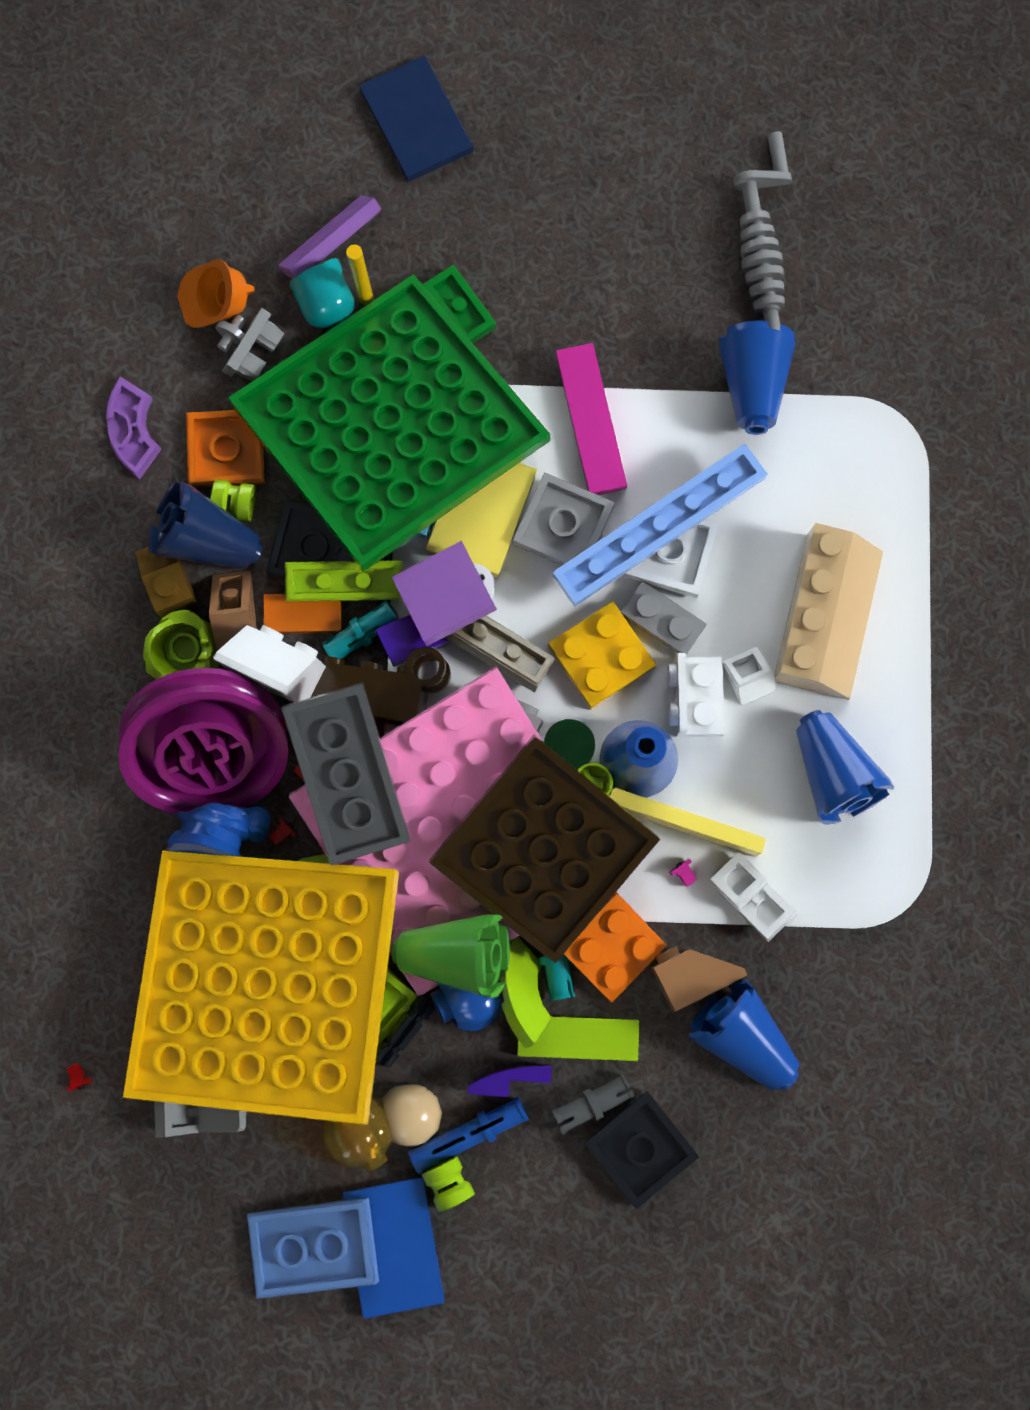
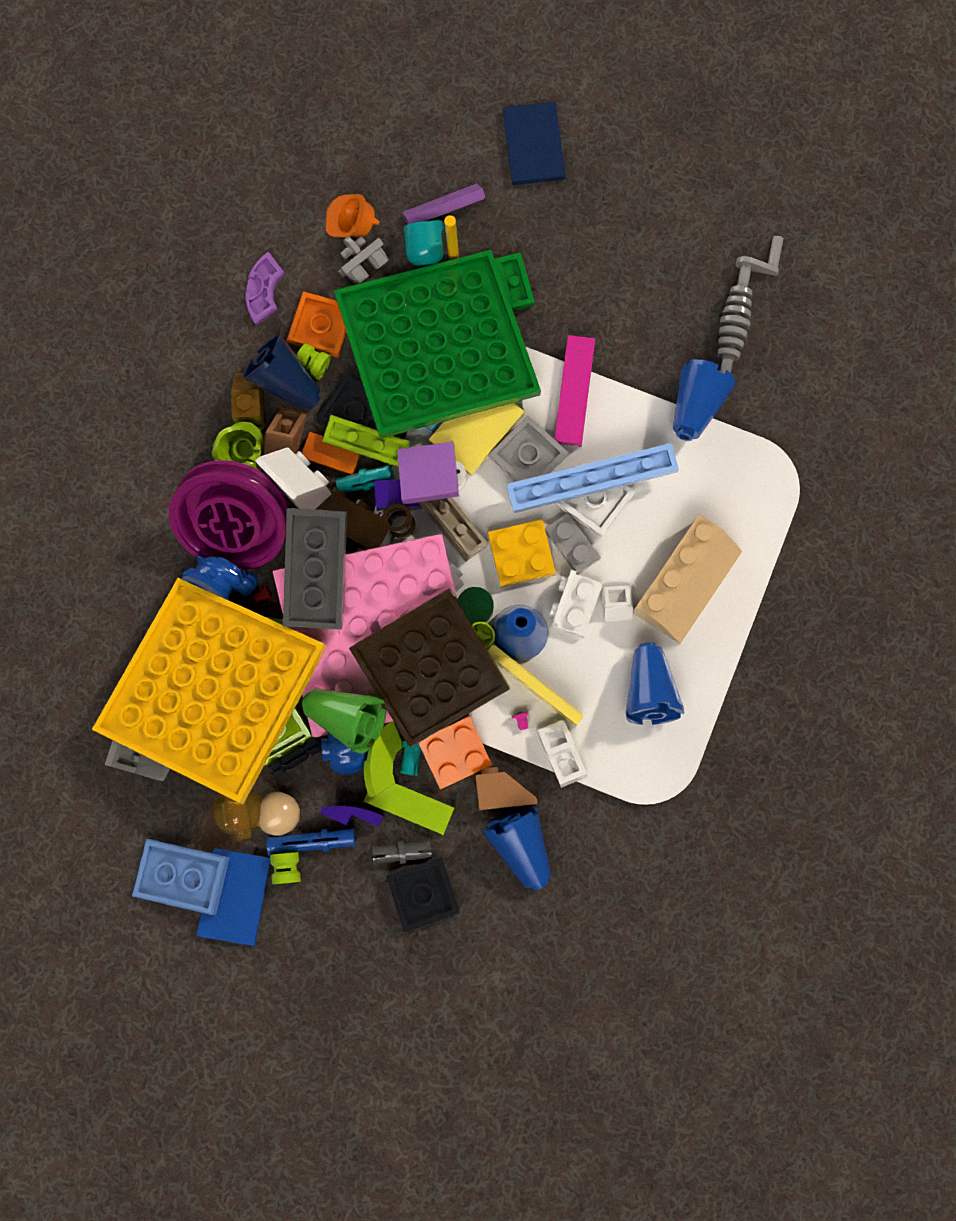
camera: 25 degrees right, 0 degrees up
(77, 1078) = (69, 708): red piece -> none

